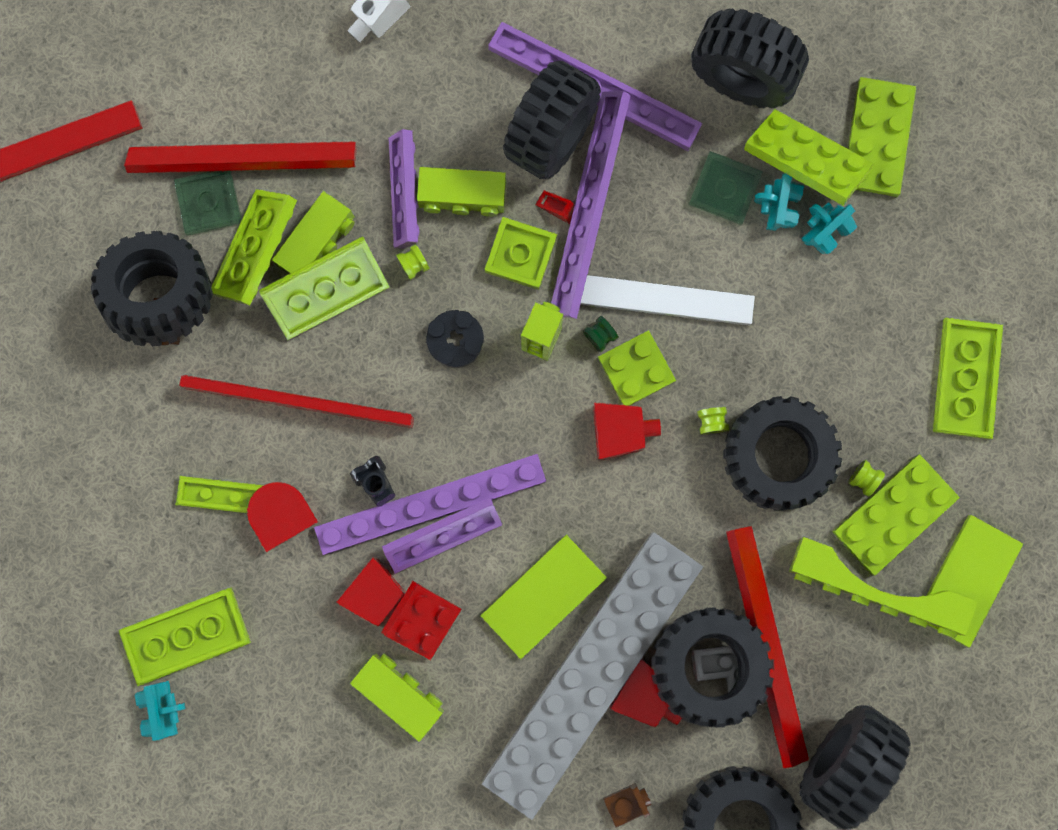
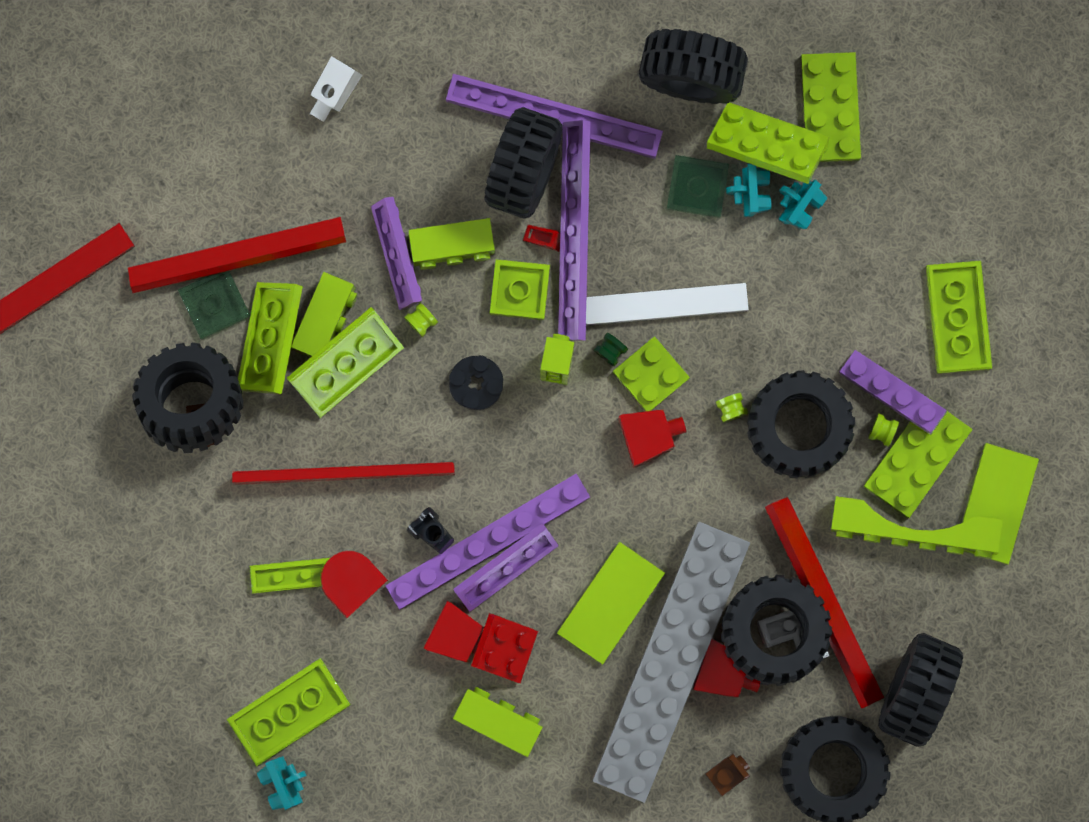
camera: 15 degrees left, 0 degrees up
(885, 441) = (893, 392): none -> medium lavender plate

